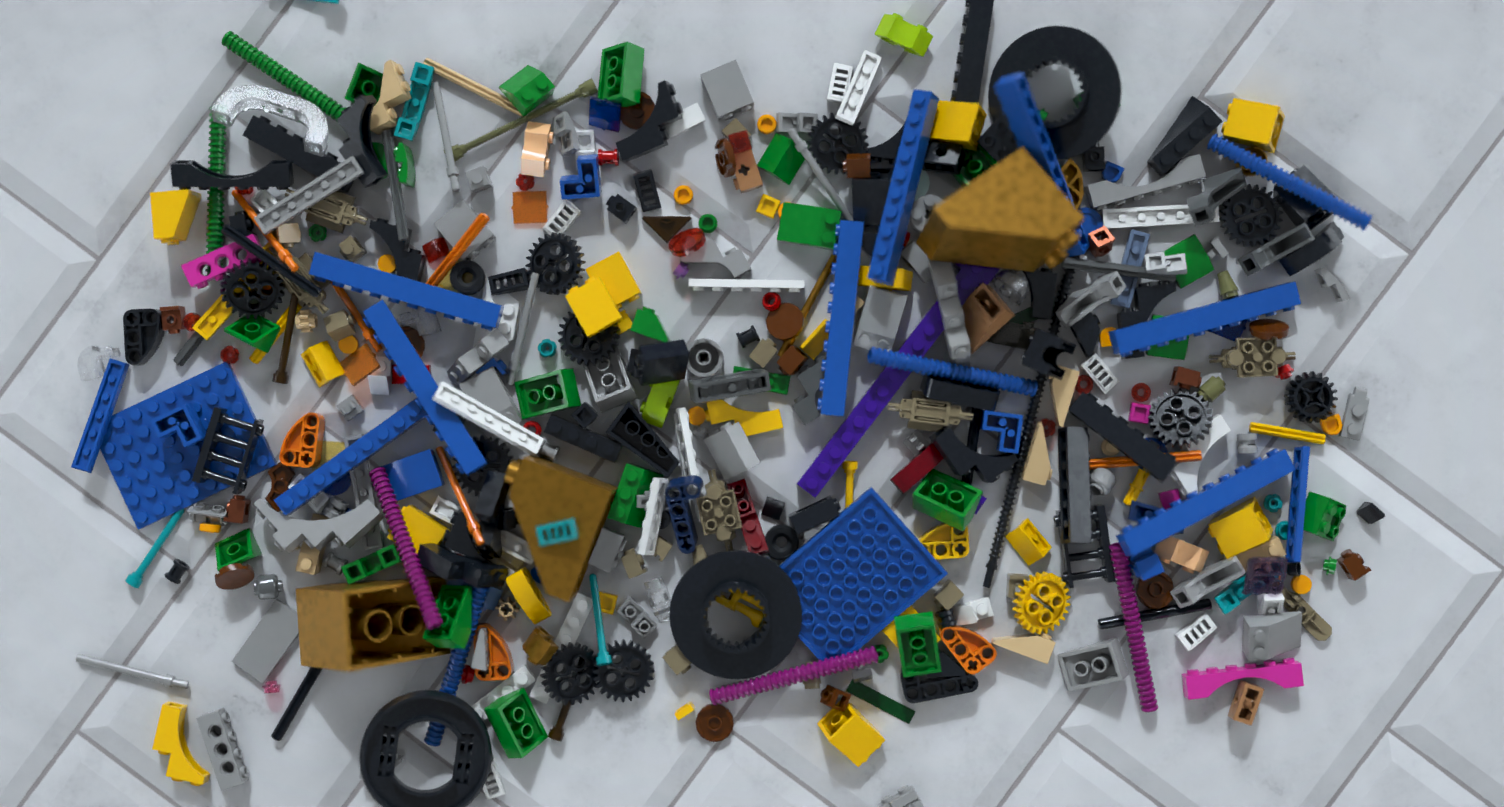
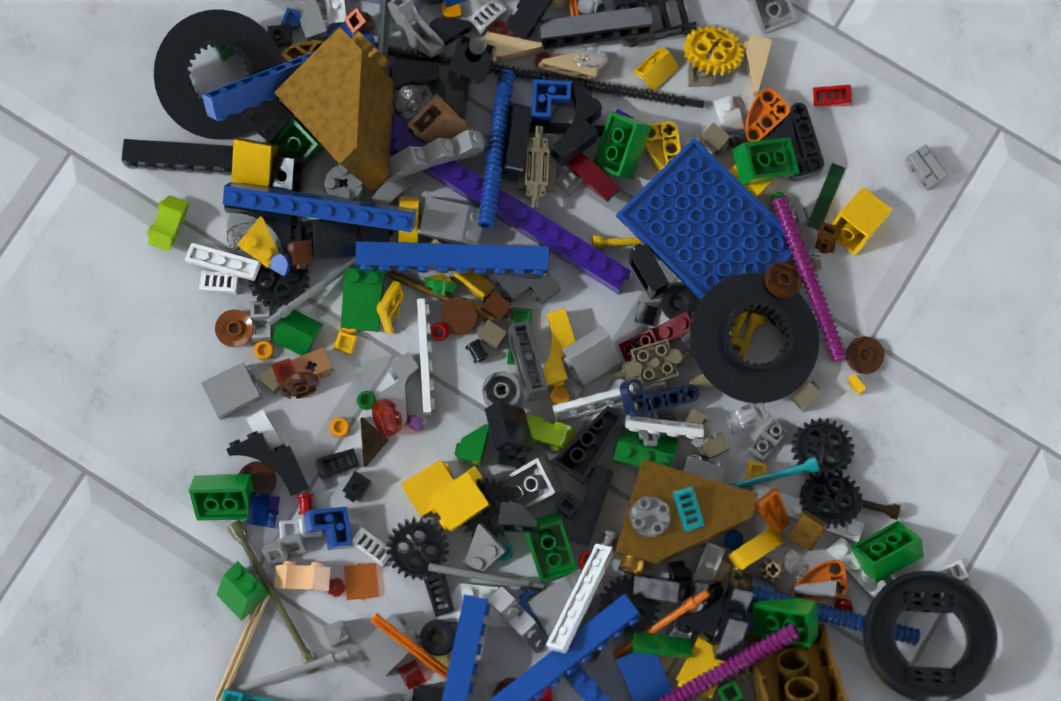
camera: 95 degrees left, 10 degrees down
(439, 494) = (661, 645): none -> green tile
(510, 631) = (795, 564): none -> clear rock
(548, 329) = (483, 549): none -> light grey wing
(553, 493) = (650, 516): none -> light grey dish
(562, 616) = (772, 510): none -> orange wing
(572, 362) = (516, 518): none -> black slope
(792, 649) = (783, 280): none -> reddish brown tile
(793, 86) = (231, 319): none -> dark orange dish
(800, 253) = (390, 306): none -> yellow wing
(817, 304) = (440, 284): none -> green piece
(849, 146) = (281, 264): none -> tile
(872, 125) = (259, 243): none -> yellow wing
(886, 108) = (236, 233): none -> clear rock
(990, 736) = (832, 89): none -> red slope
(1040, 475) = (591, 57): none -> clear rock

